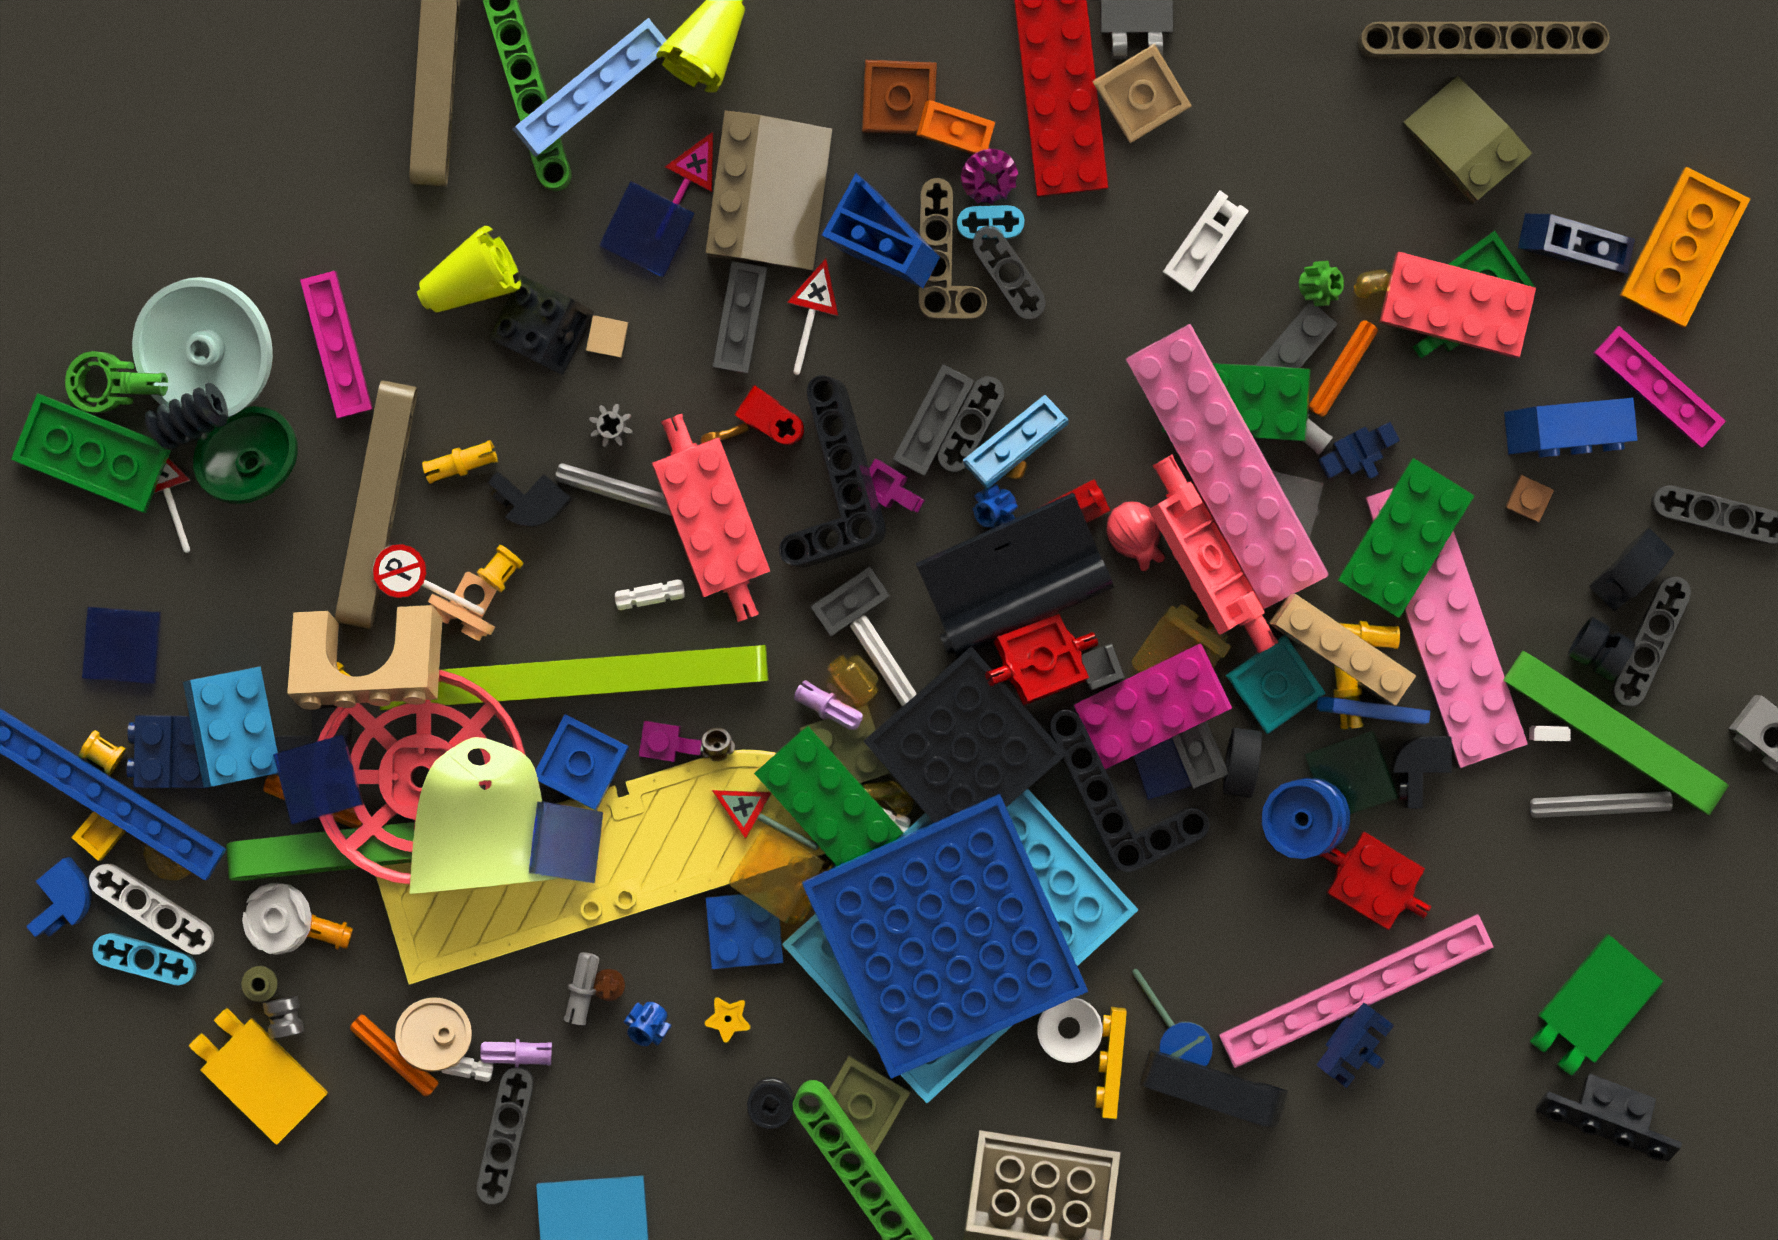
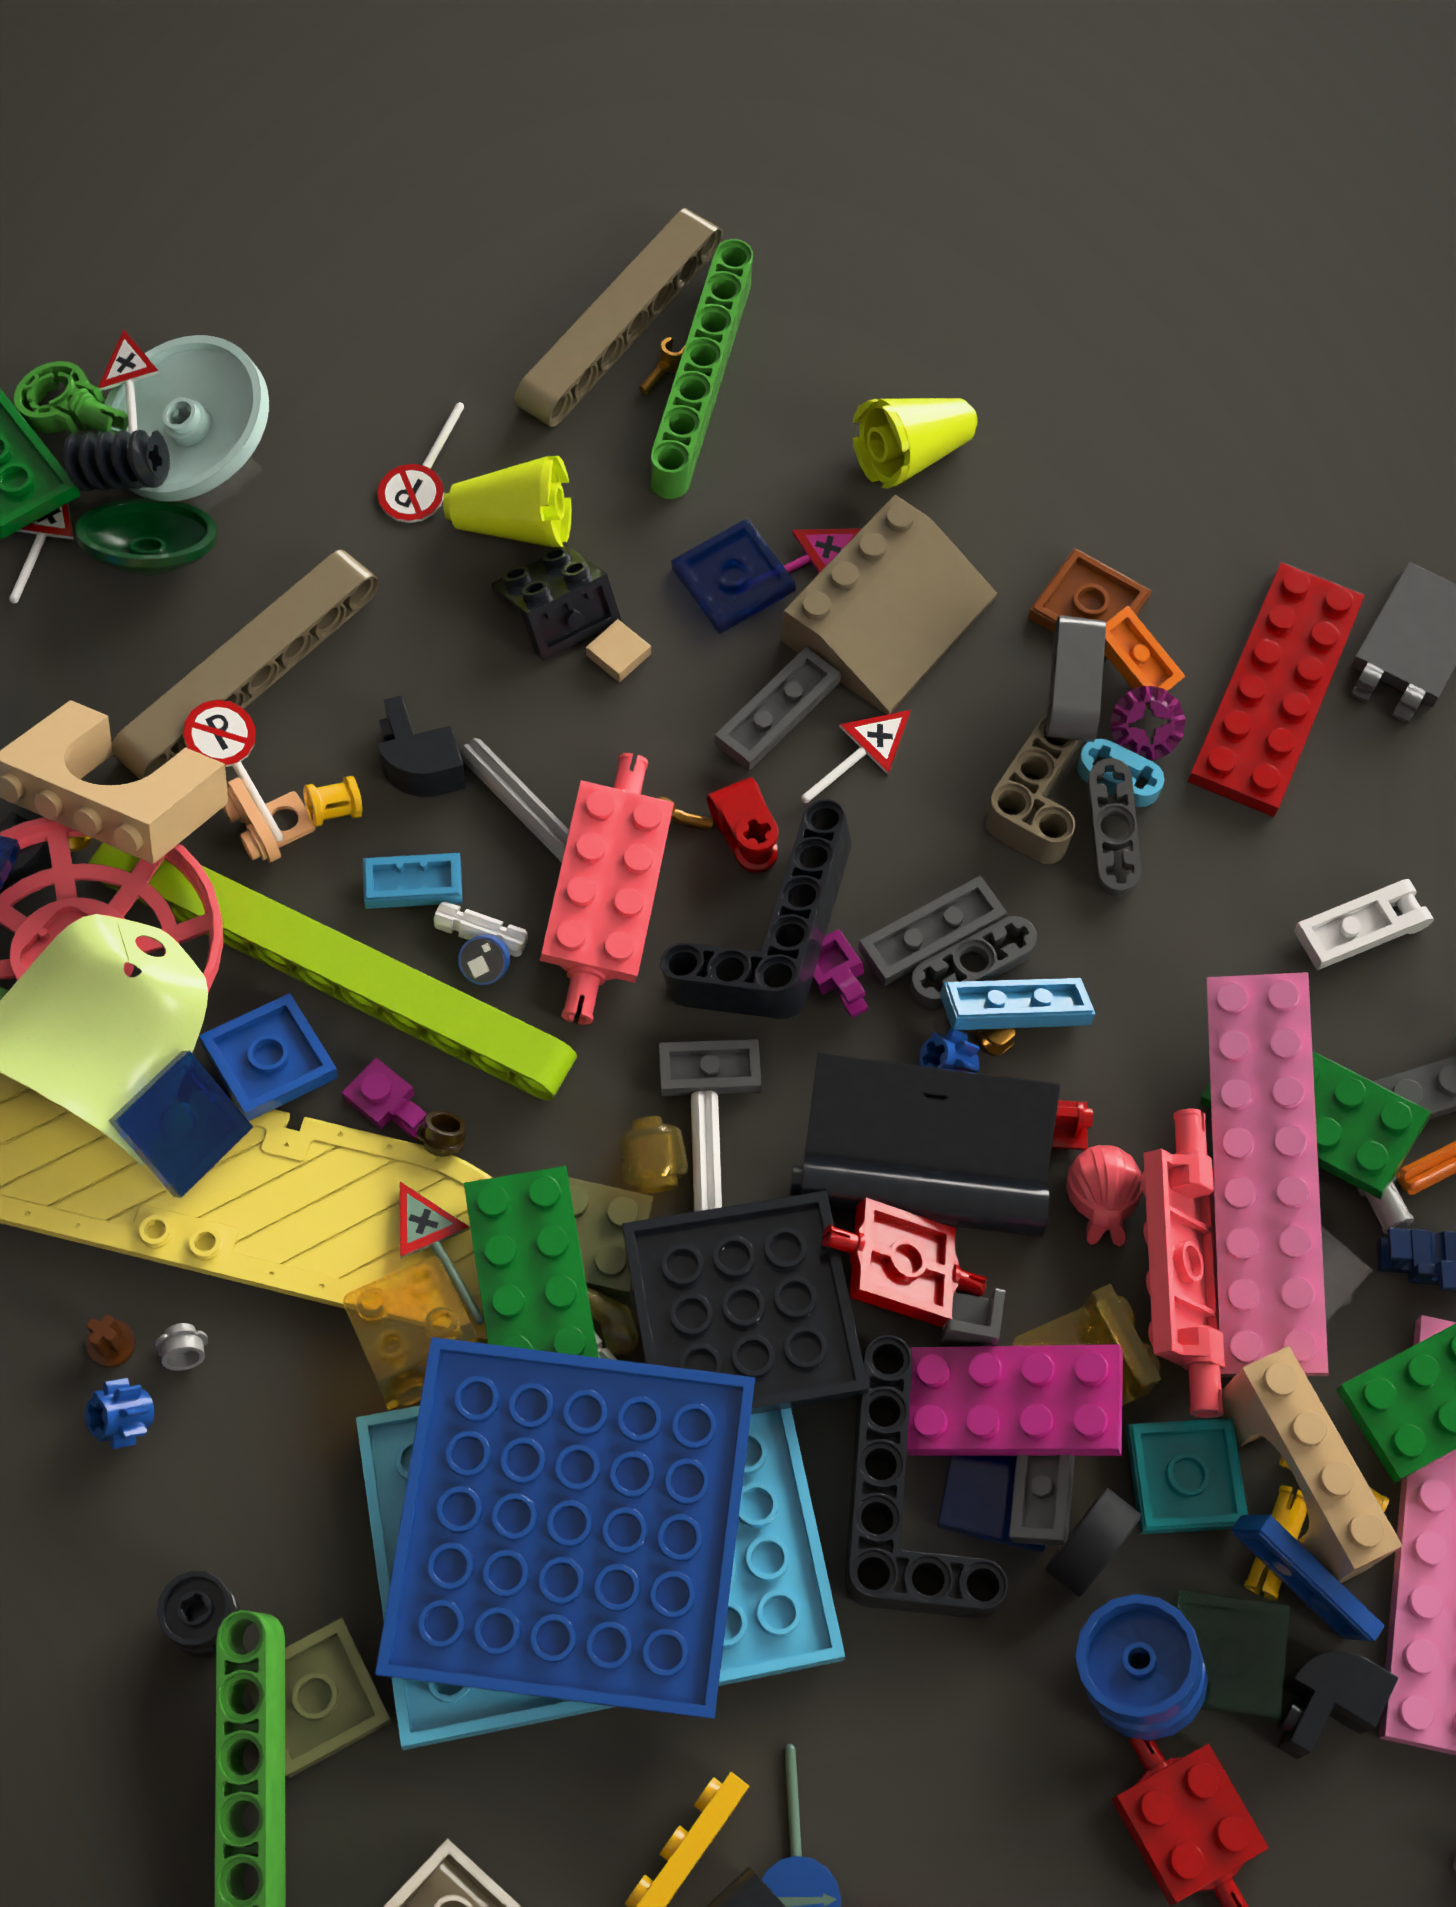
camera: 25 degrees right, 25 degrees down
(134, 334) = (126, 366): none -> piece
(336, 344) = (324, 498): dark pink plate -> none
(386, 295) = (414, 490): none -> piece
(459, 461) = (369, 676): yellow pin -> none
(491, 84) = (667, 362): none -> pearl gold hand
(582, 988) = (71, 1324): light grey axle -> none
(586, 589) = (412, 880): none -> dark azure plate
(590, 88) = (759, 405): light blue plate -> none
(621, 428) = (561, 730): light grey gear -> none
(653, 963) = (181, 1347): none -> light grey plate
(667, 616) = (484, 959): none -> tile
(737, 1021) = (234, 1485): yellow plate -> none
(742, 932) = (318, 1378): blue plate -> none
(828, 705) = (605, 1164): lavender axle -> none
(876, 234) = (989, 699): blue wedge -> none
(928, 189) = (1076, 678): none -> dark grey beam
(1070, 1049) = (656, 1734): white piece -> none
(1142, 93) = (1371, 735): tan tile -> none

